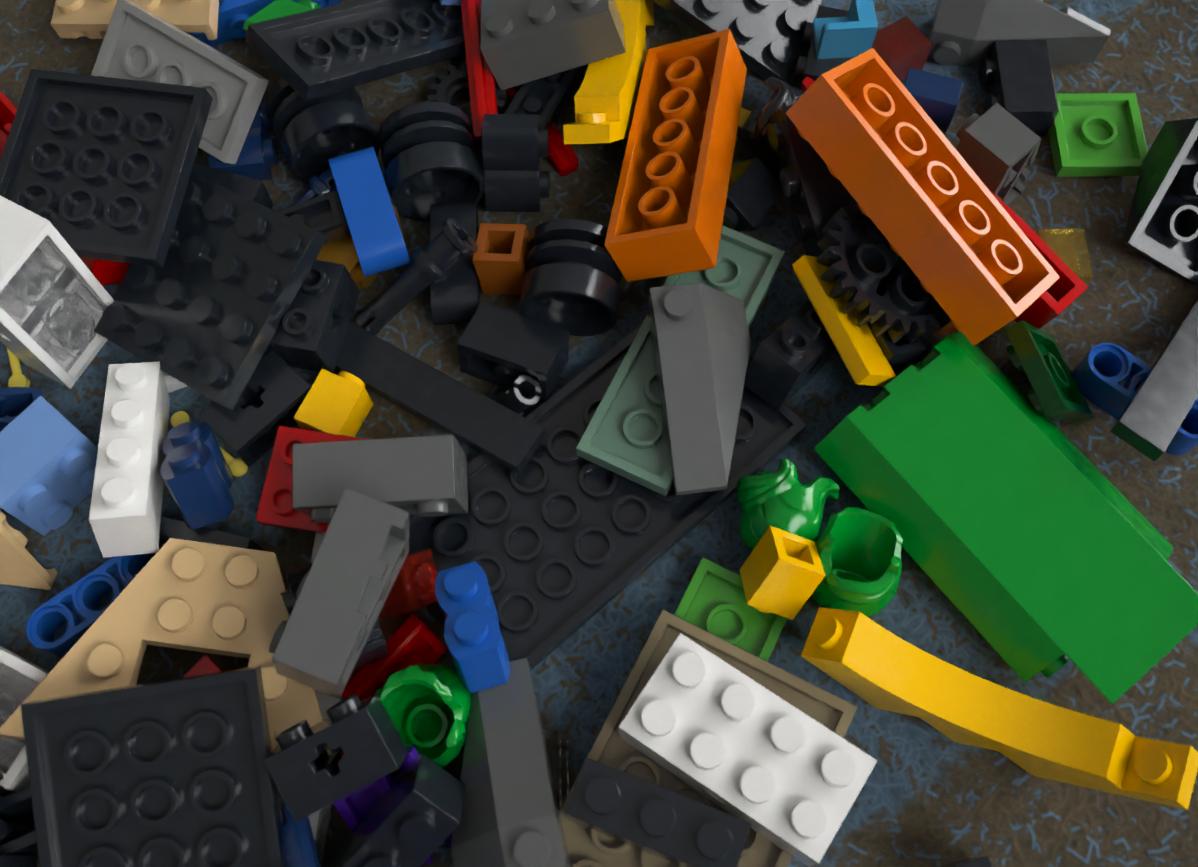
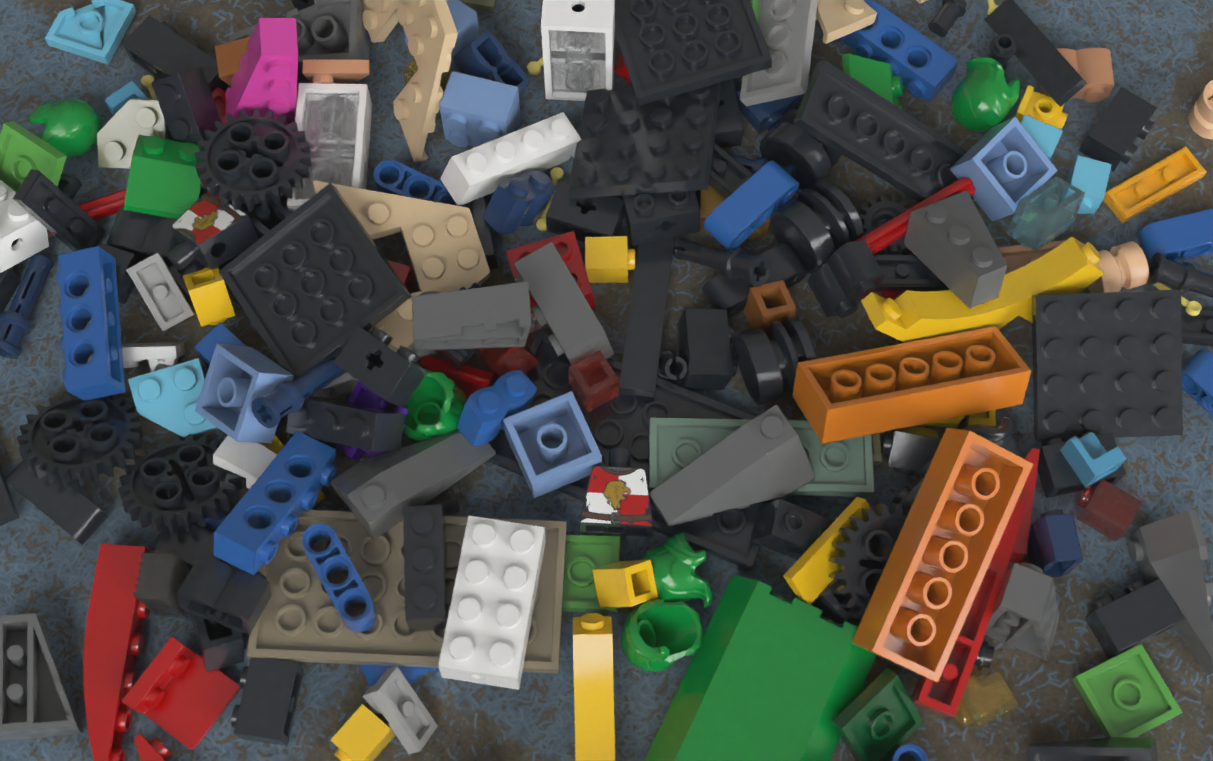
camera: 65 degrees right, 0 degrees up
(496, 490) = (593, 381): none -> clear red brick
(556, 578) = (552, 444): none -> medium blue brick
(660, 533) = (617, 499): none -> torso

